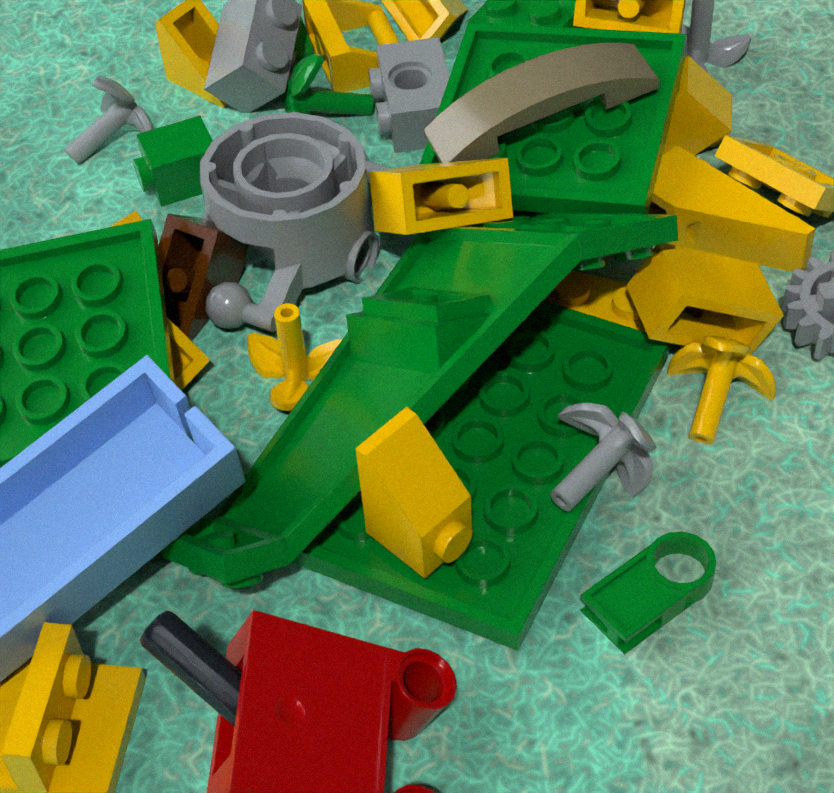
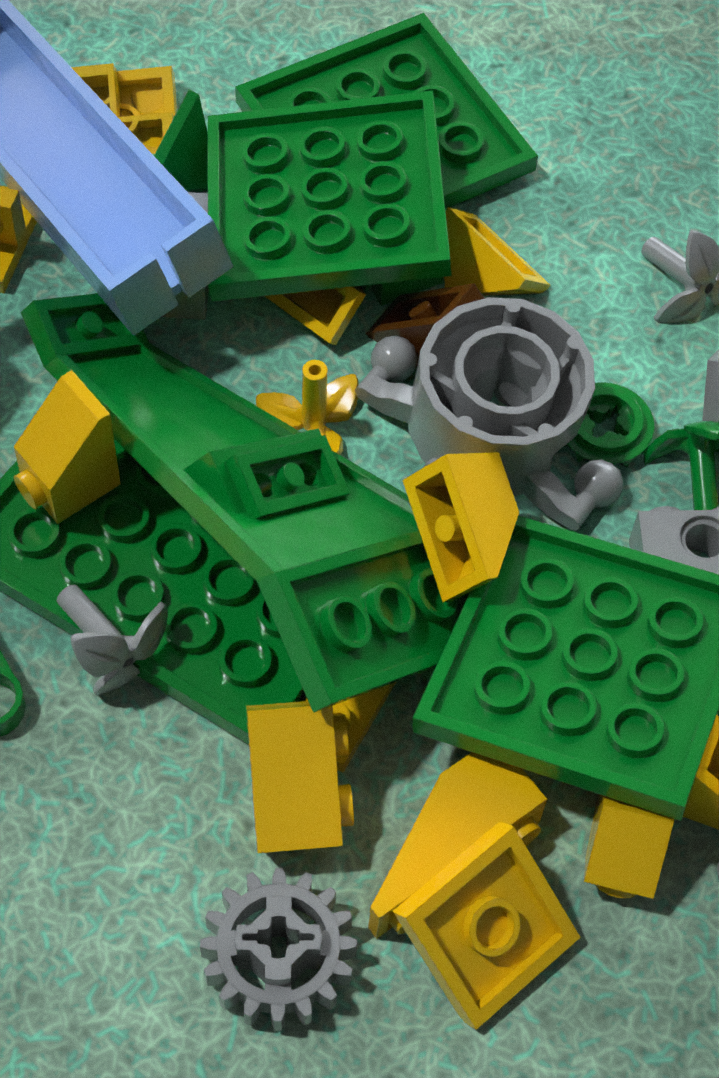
camera: 90 degrees right, 10 degrees up
(172, 160) = (614, 326): green brick -> none
(534, 91) = (595, 639): dark tan slope -> none
(723, 362) = (206, 773): yellow plant -> none

